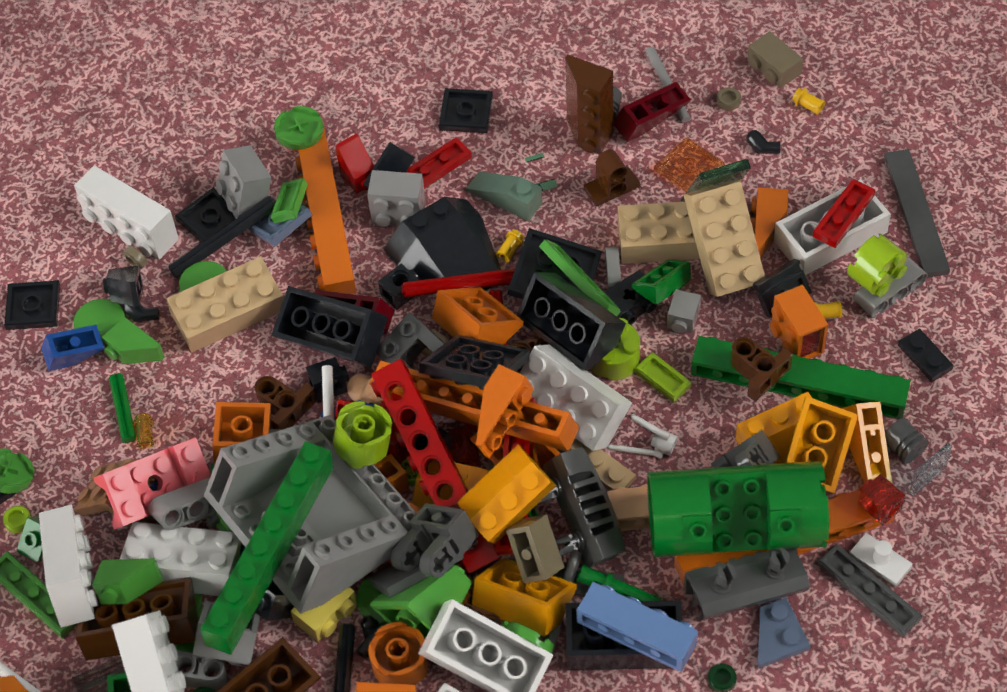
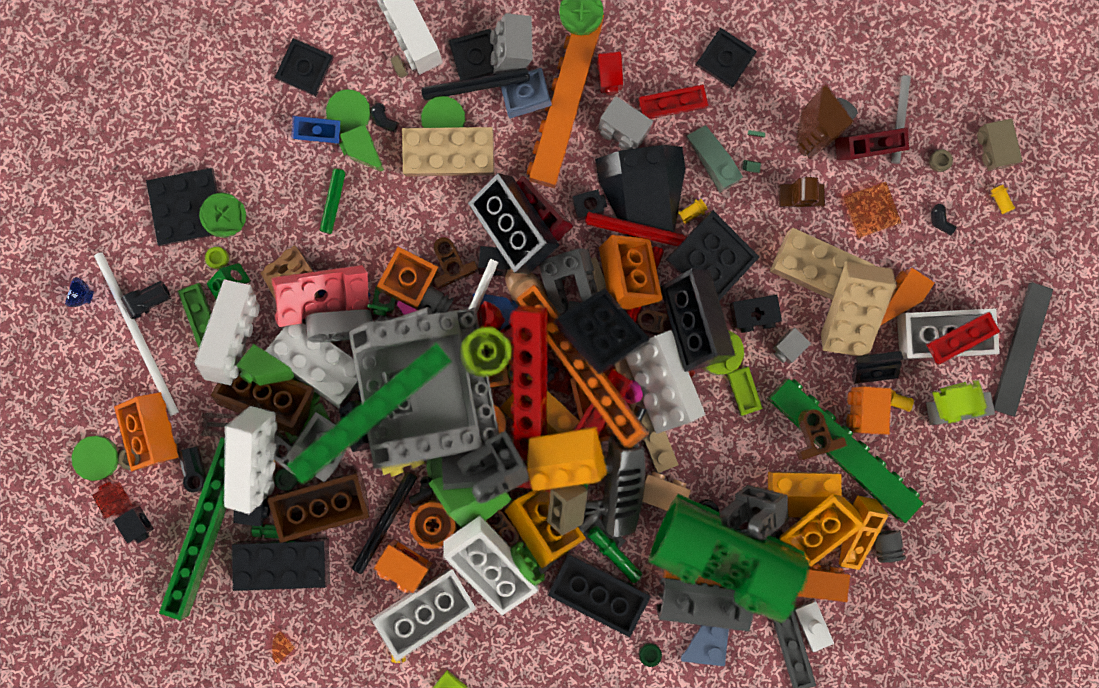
camera: 20 degrees right, 30 degrees up
(124, 285) = (378, 93): black slope -> none
(143, 425) = (339, 231): clear yellow pin -> none
(289, 200) = (539, 82): bright green tile -> none
(392, 159) = (636, 90): black slope -> none
(501, 403) = (597, 393): orange slope -> none
(578, 276) = (726, 282): bright green tile -> none
(612, 266) = (759, 276): light grey beam -> none
(637, 626) = (606, 606): medium blue brick -> none
(662, 441) = (713, 447): white plant -> none
(663, 280) = (789, 313): green slope -> none
(725, 173) = (879, 257): clear green tile -> none
(881, 499) = (840, 595): clear red brick -> none
(925, 355) = (949, 478): black plate -> none
(930, 469) = (892, 583): clear light blue piece -> none

